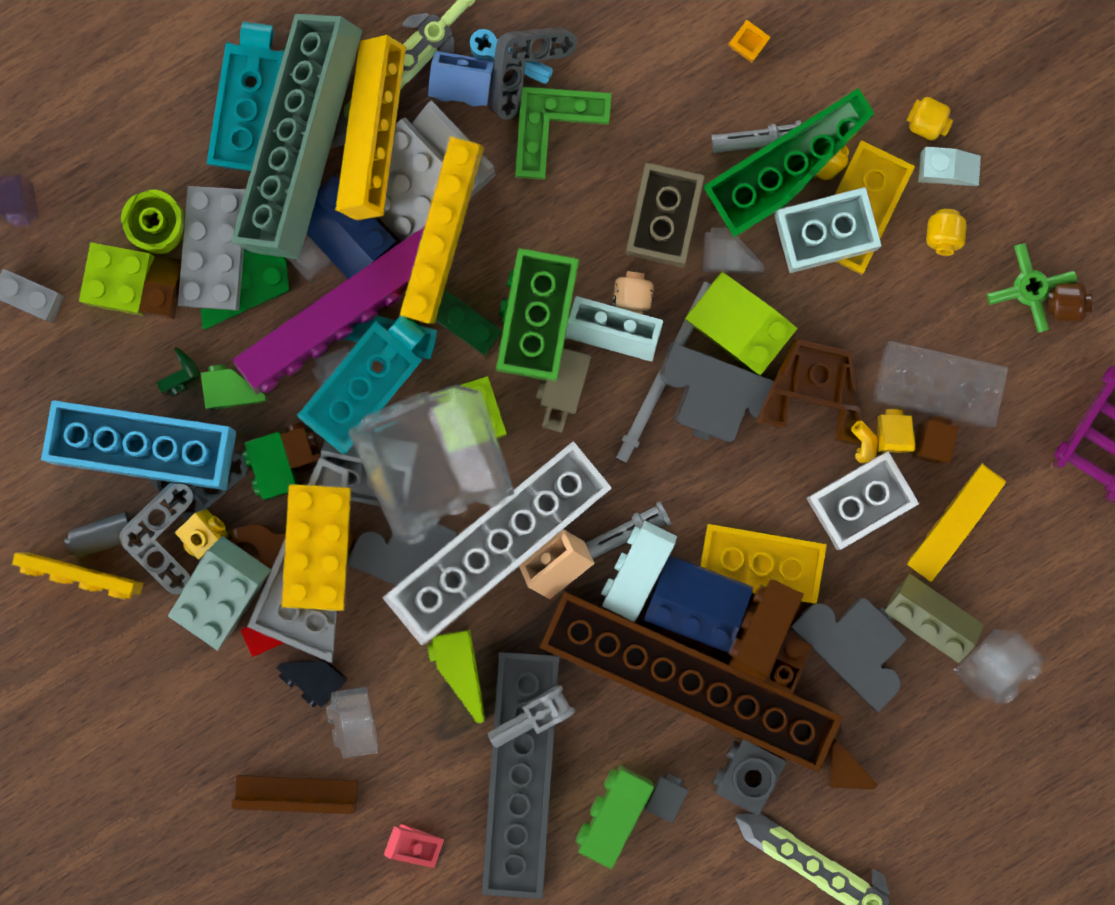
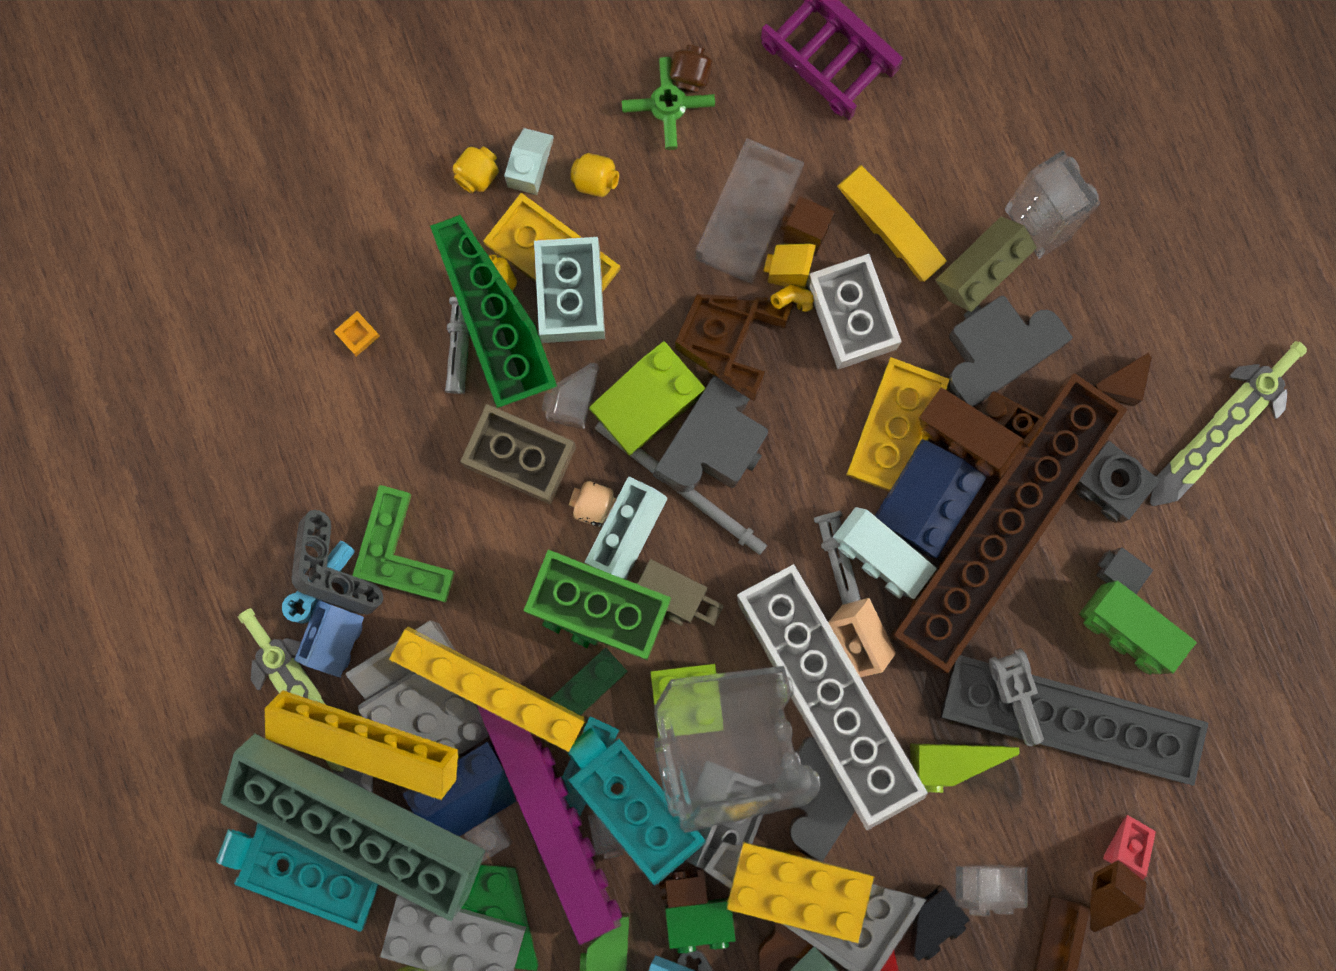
camera: 80 degrees left, 5 degrees down
(368, 834) = (1115, 895): none -> reddish brown slope

